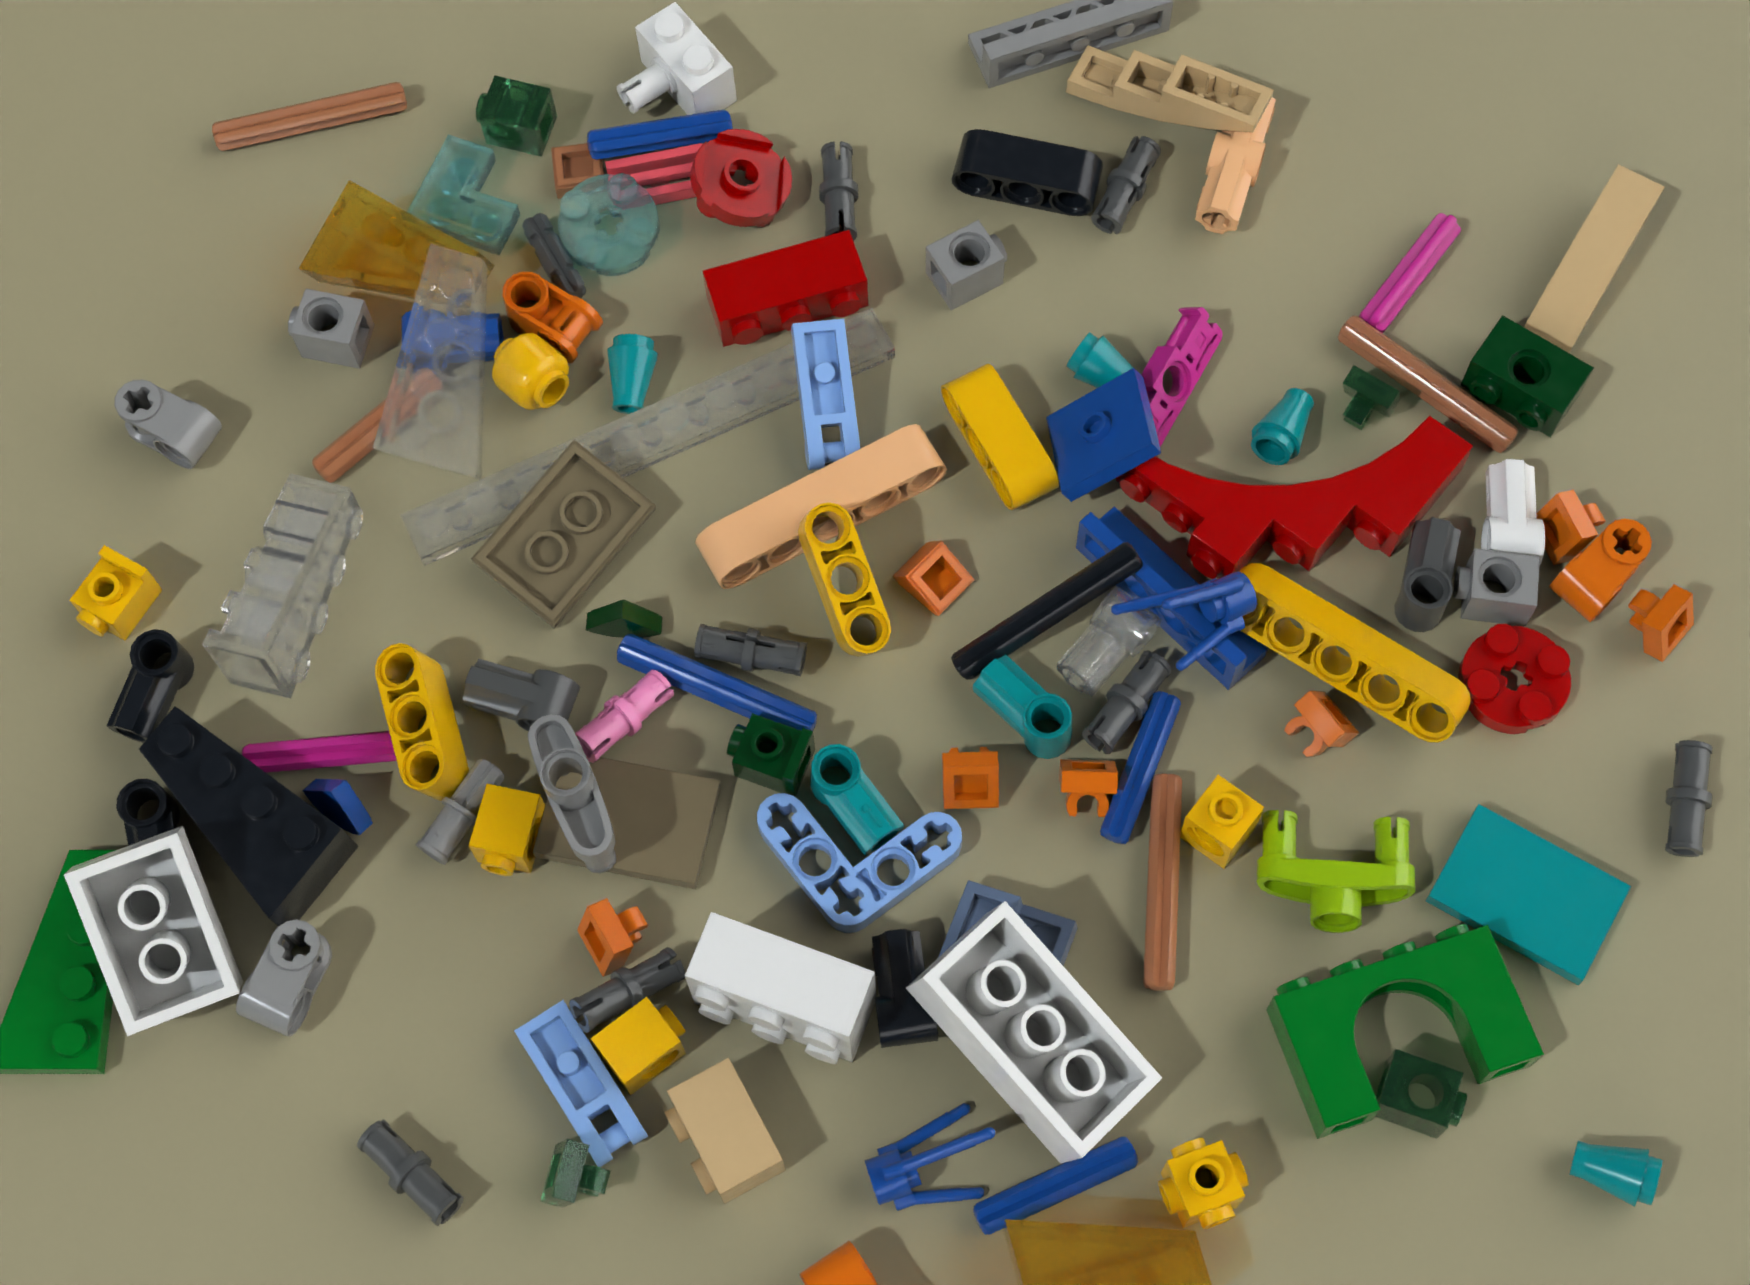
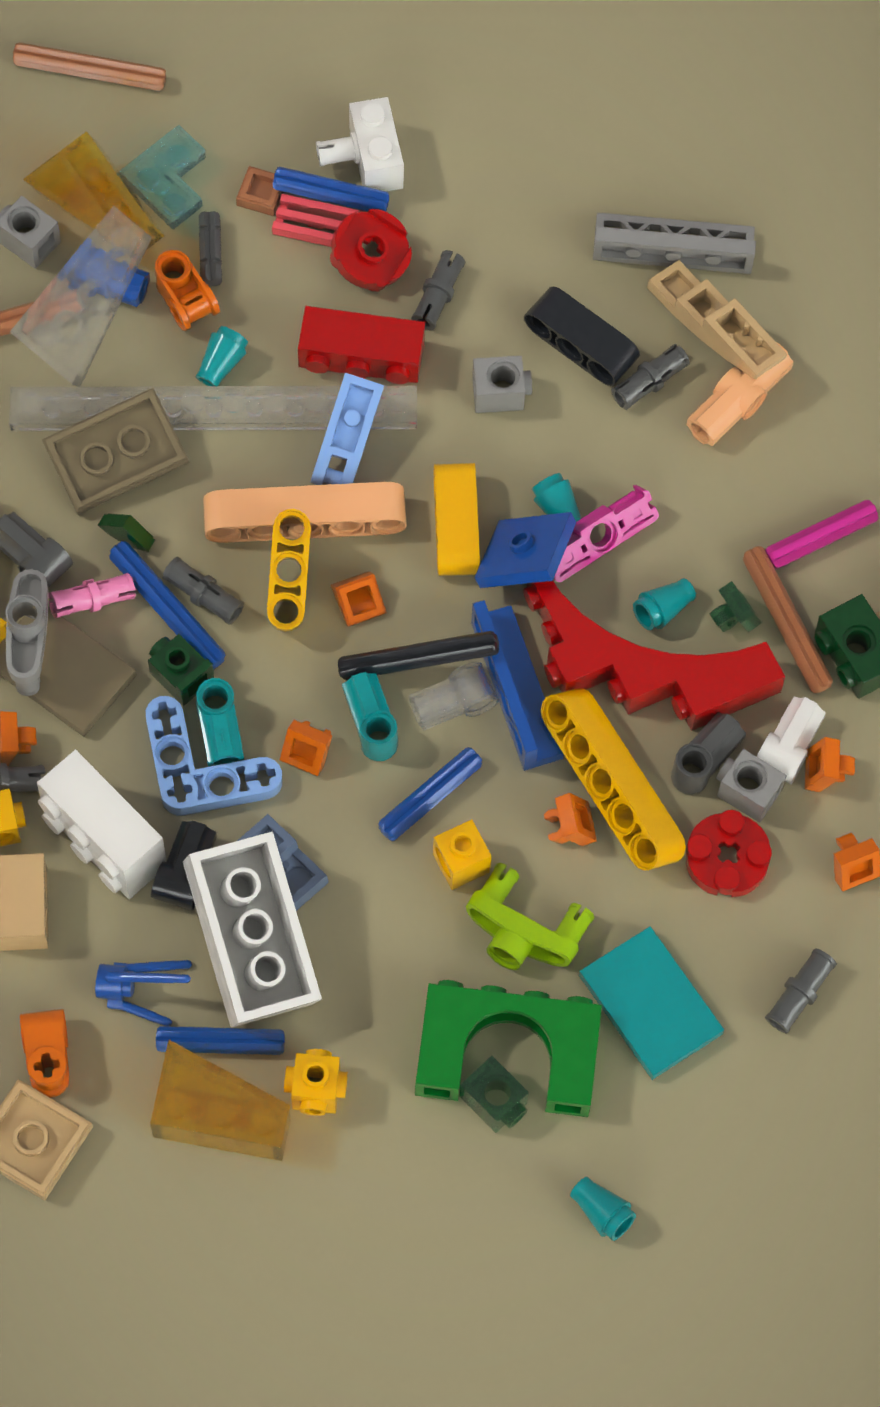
camera: 20 degrees right, 0 degrees up
(516, 115) = (235, 131): clear green brick -> none
(530, 371) = (150, 325): yellow head -> none
(613, 196) = (248, 222): clear light blue plate -> none
(1088, 778) = (387, 783): orange tile -> none
(1127, 702) = (444, 744): dark grey pin -> none
(1163, 882) = (401, 878): nougat axle -> none
(1219, 600) = (539, 701): blue plant -> none
(1599, 571) = (825, 807): orange piece -> none

